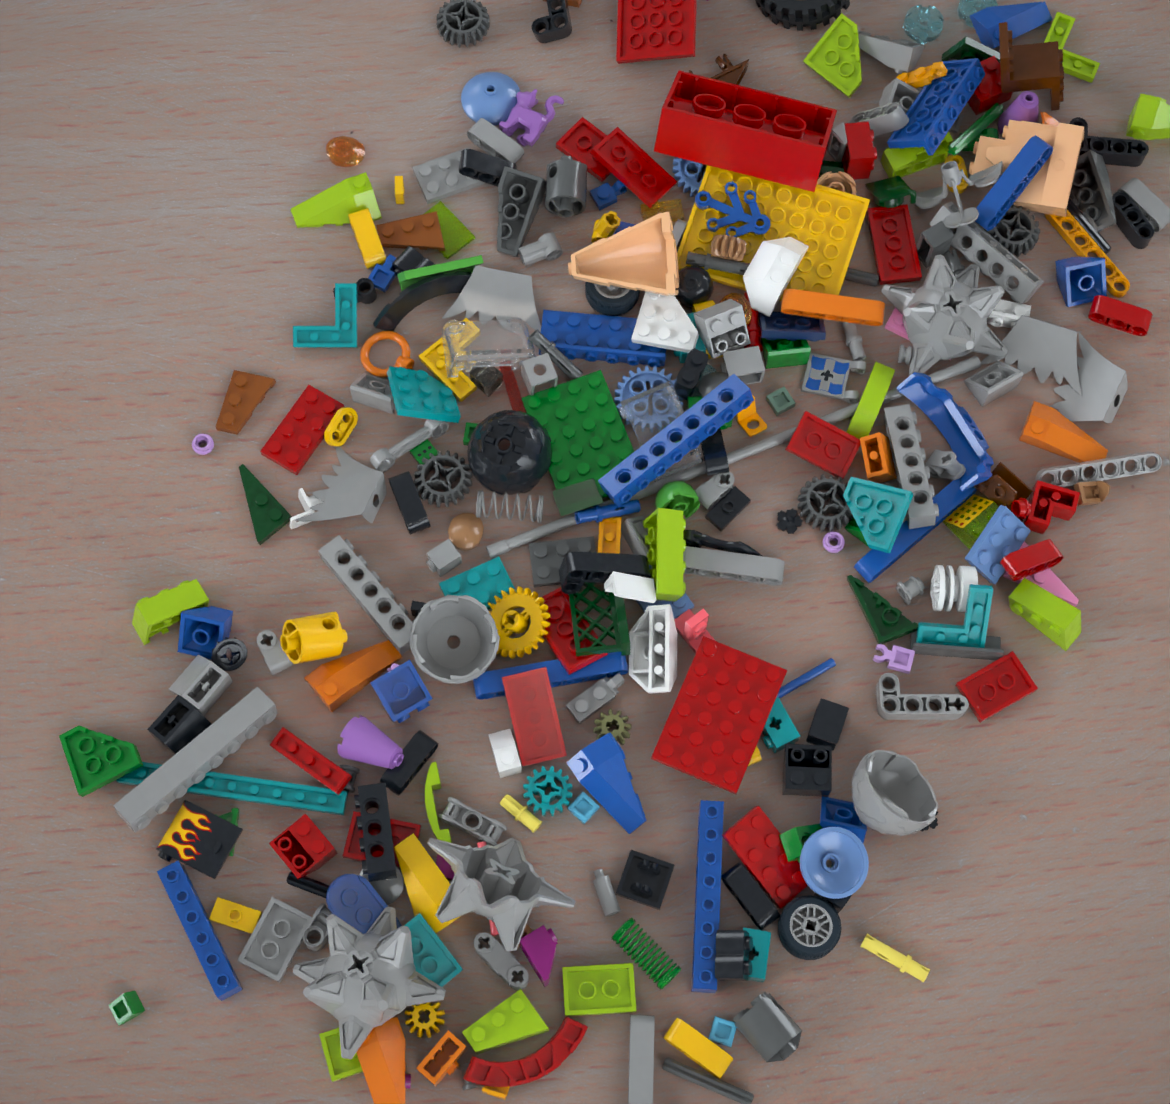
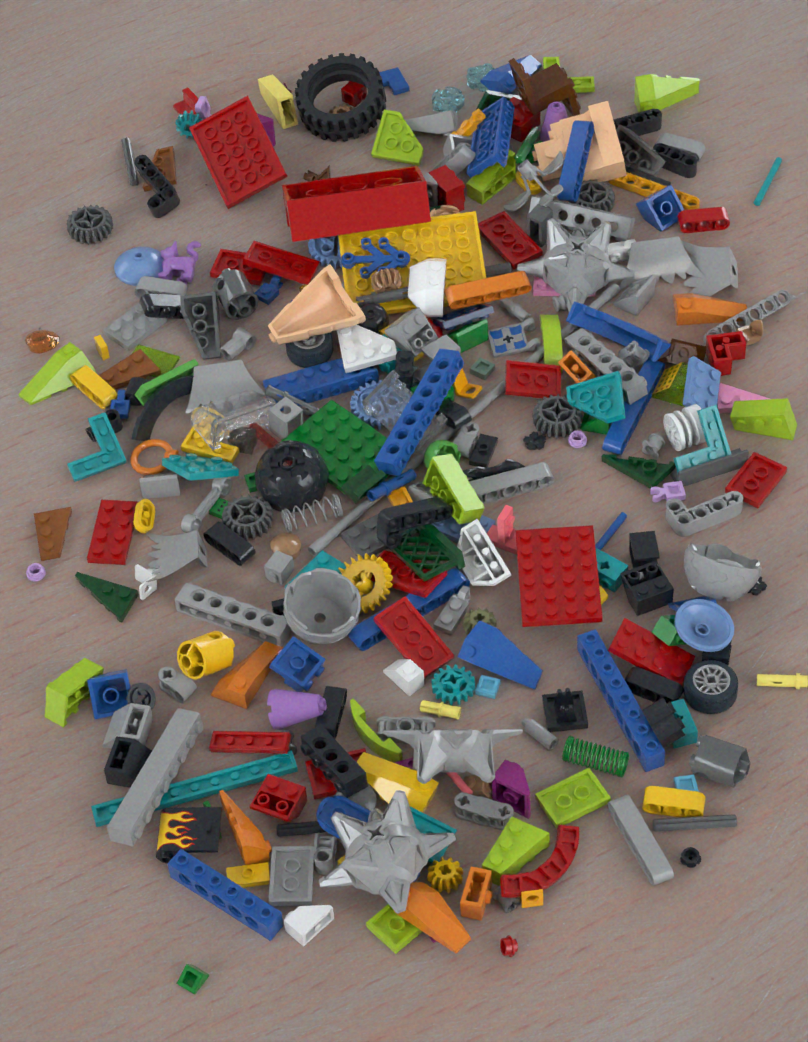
camera: 20 degrees left, 20 degrees down
(97, 758) = (71, 812): green plate -> none
(252, 878) = (247, 836): none -> orange wedge
(262, 1003) = (307, 922): none -> white slope
(605, 226) = (281, 301): yellow piece -> none
(631, 587) = (440, 518): white panel -> none
(891, 192) = (488, 207): dark green hat -> none
(1021, 508) = (705, 355): red plate -> none
(1031, 559) = (732, 387): red beam -> none

